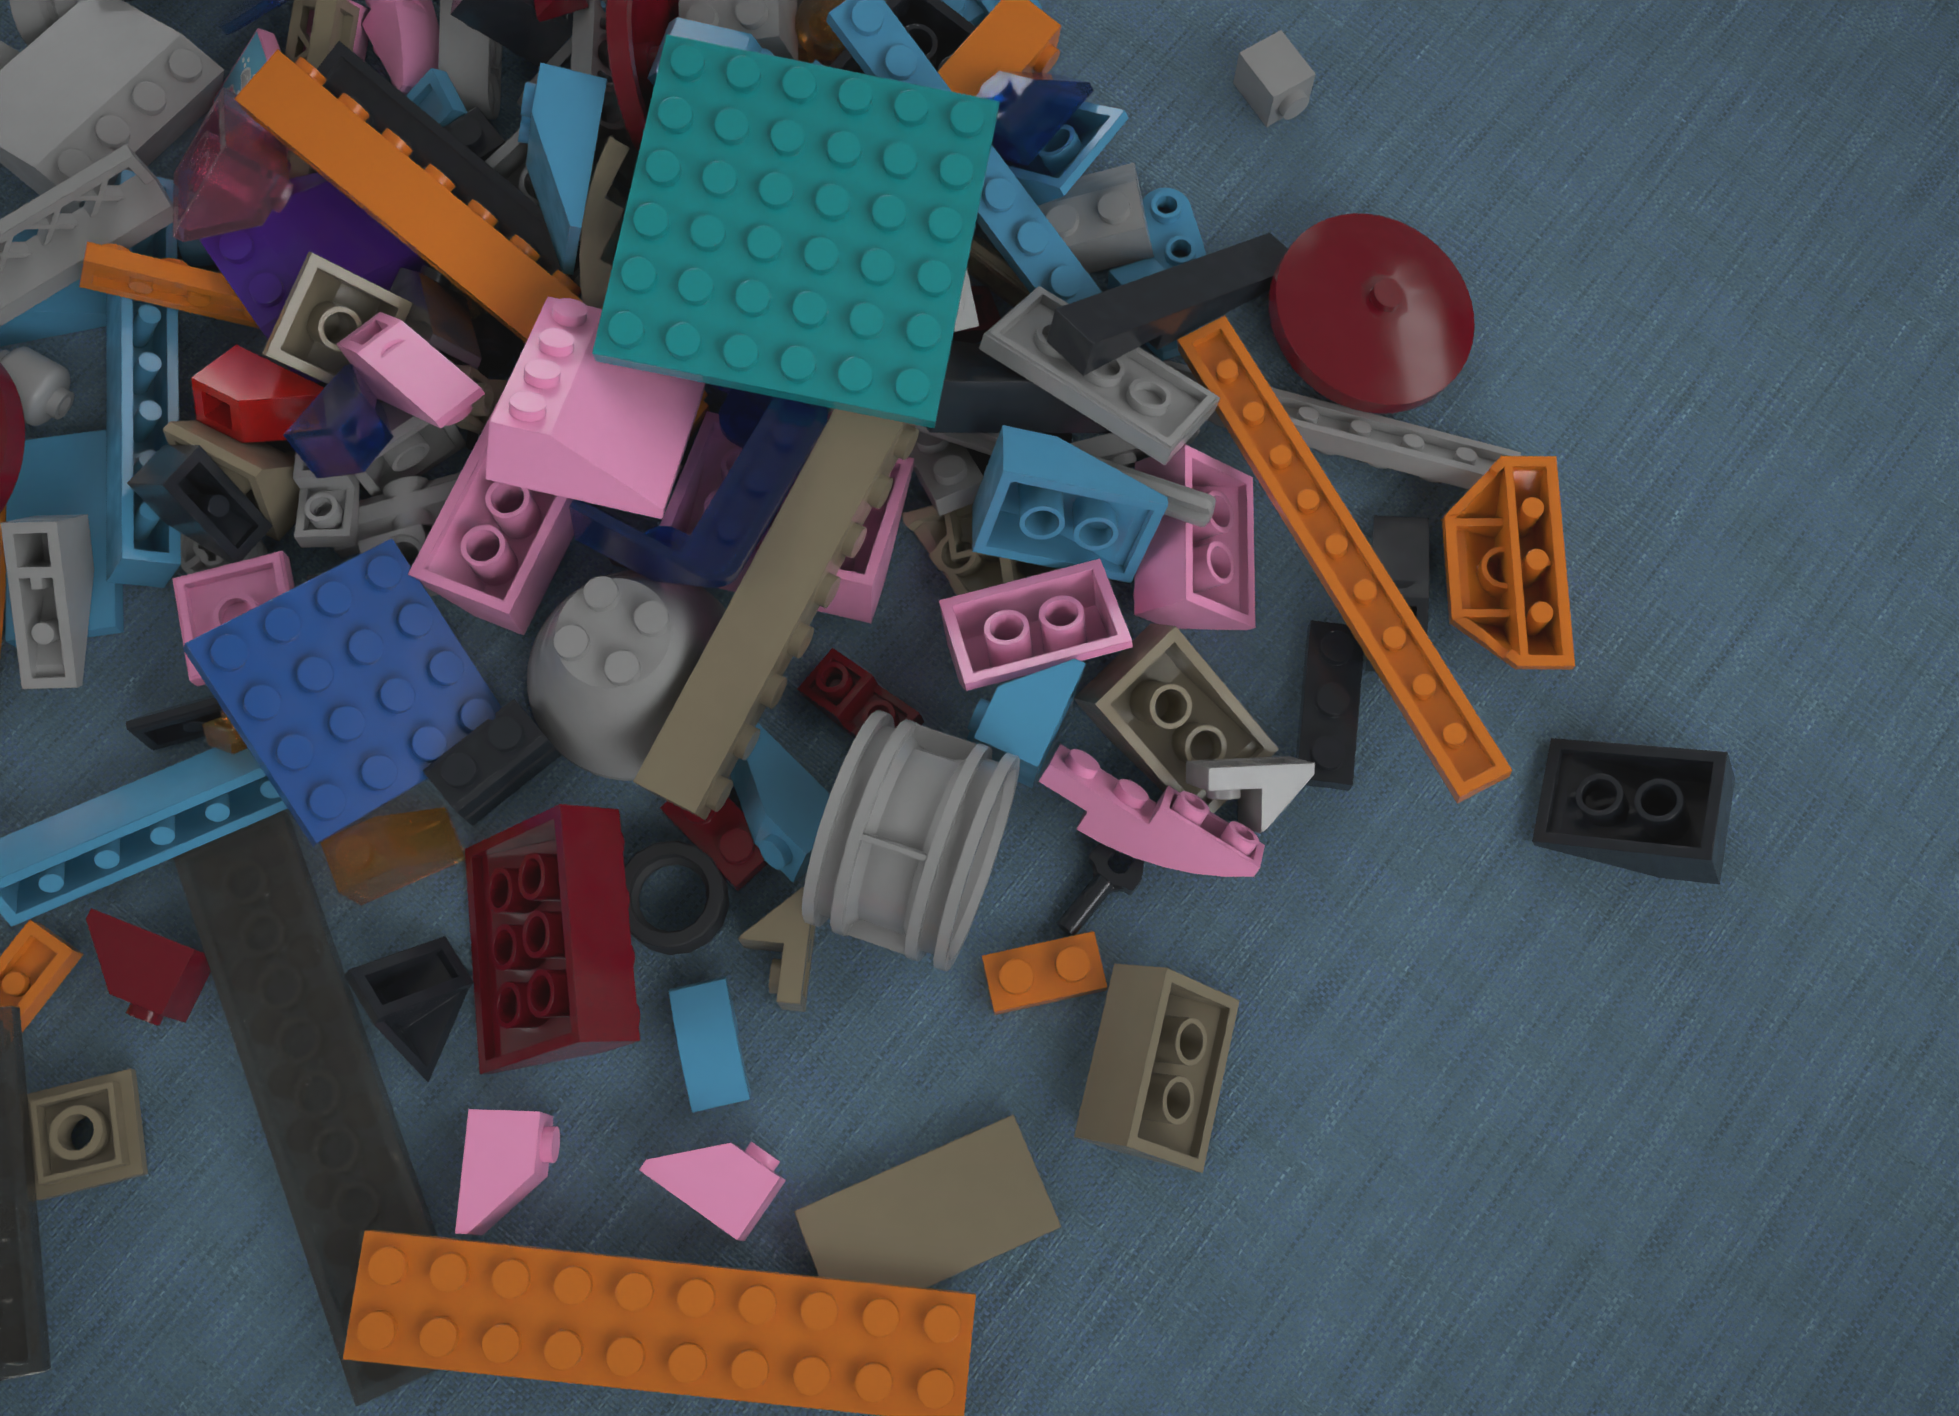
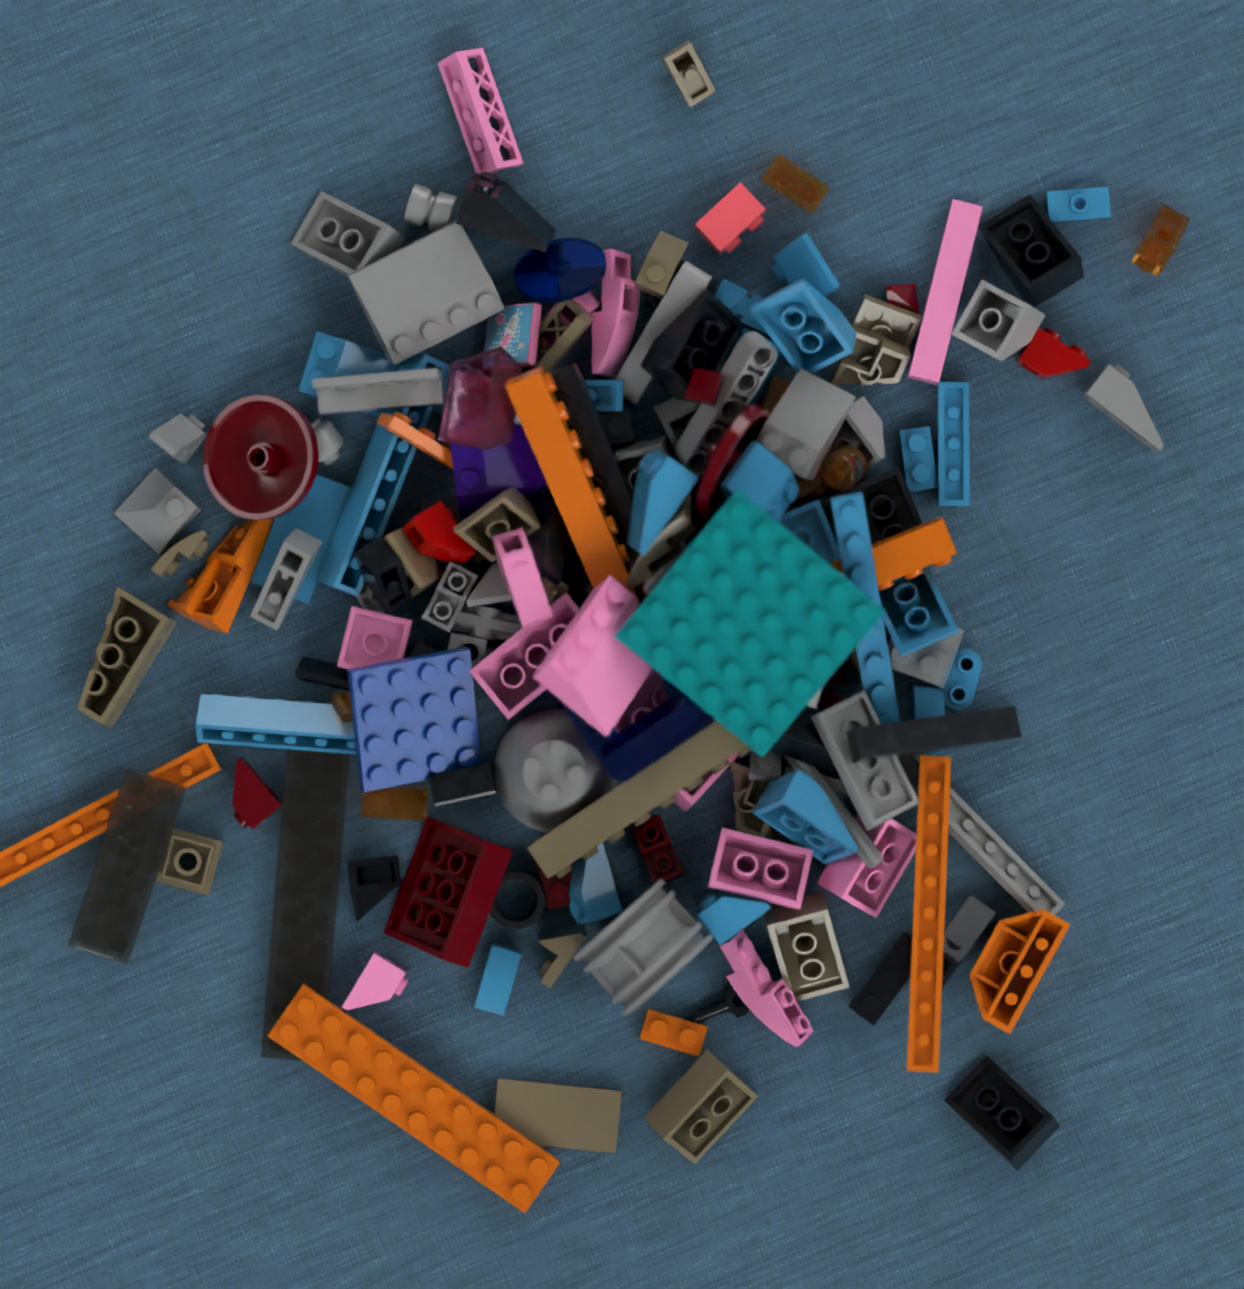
camera: 30 degrees right, 15 degrees up
(341, 427) = (475, 585): clear blue slope -> none
(721, 1183) = (471, 1048): bright pink slope -> none
(1031, 110) = (914, 591): clear blue slope -> none
(1260, 784) = (827, 1001): light grey slope -> none
(1274, 79) = (1070, 621): light grey brick -> none
(1371, 313) = (1036, 786): dark red dish -> none

